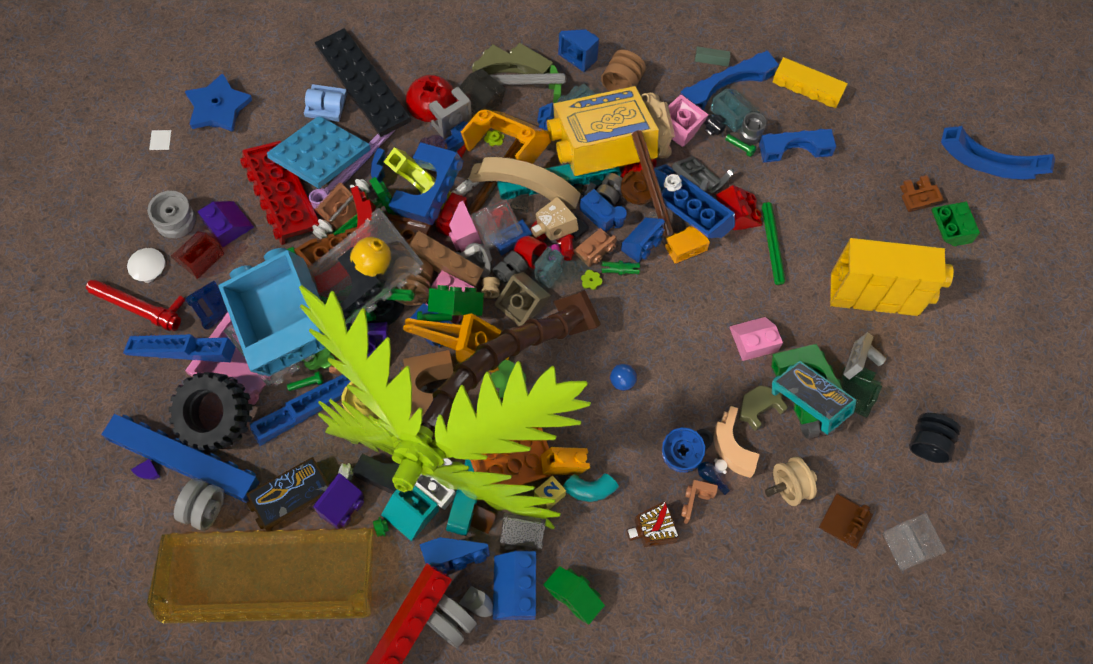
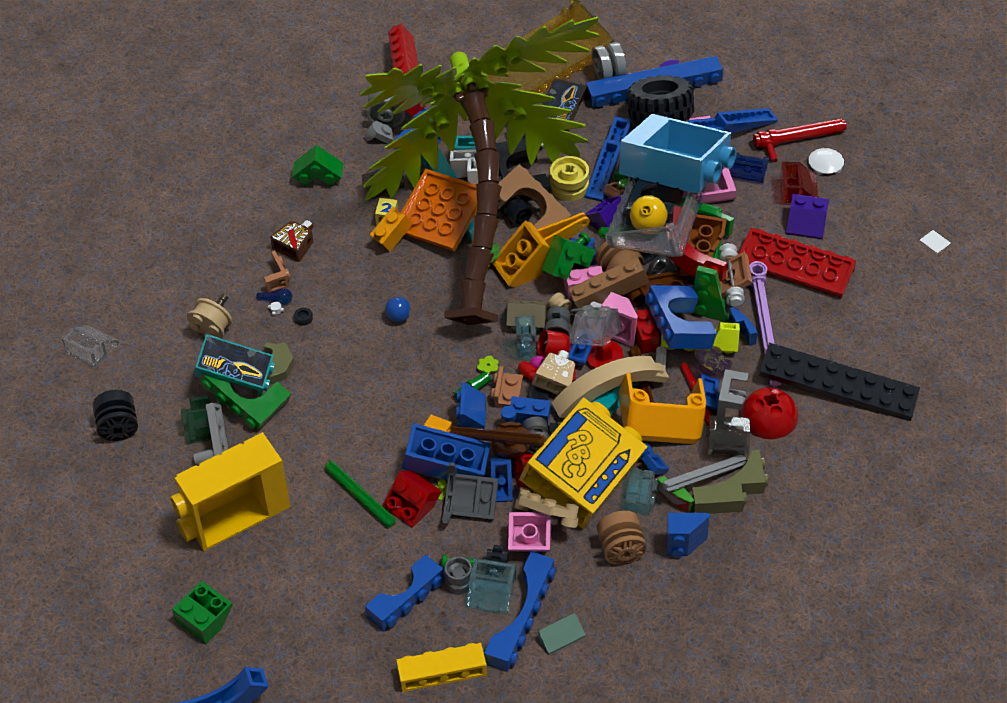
camera: 145 degrees right, 15 degrees down
(171, 214) = (847, 191): light grey wheel -> none
(216, 104) = (925, 284): blue plate -> none
(318, 151) = (799, 300): dark azure plate -> none
(325, 102) = (848, 345): light blue plate -> none
(515, 586) = (356, 152): blue slope -> none
(590, 491) = (357, 232): teal cylinder -> none
(673, 182) = (482, 451): white plate -> none
(690, 441) = (310, 285): blue wheel -> none
(736, 457) = (276, 316): light nougat arch -> none
(756, 338) = (316, 405): bright pink slope -> none
(846, 520) = (152, 331): reddish brown hinge -> none
(921, 198) = (248, 626): dark orange plate -> none

